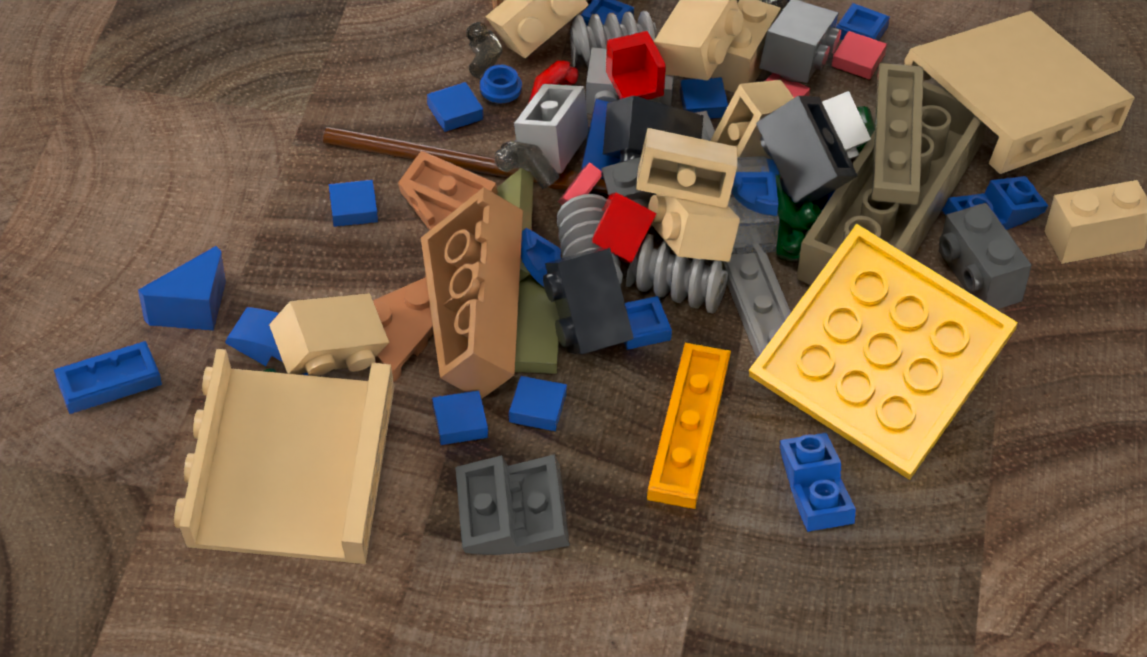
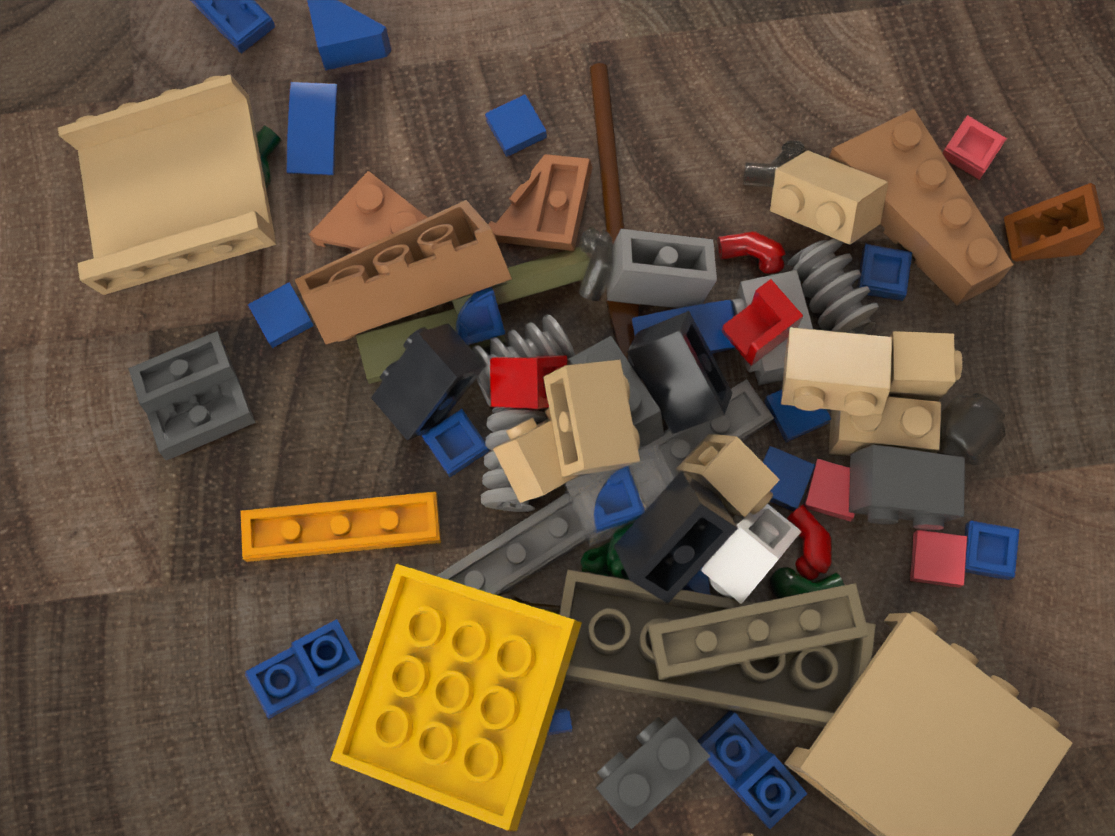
camera: 75 degrees right, 25 degrees up
(329, 334) = (306, 165): tan brick -> none
(455, 106) = (684, 170): blue tile -> none
(500, 84) = (734, 191): blue plate -> none
(537, 403) = (319, 378): blue tile -> none
(582, 183) = (596, 325): coral tile -> none

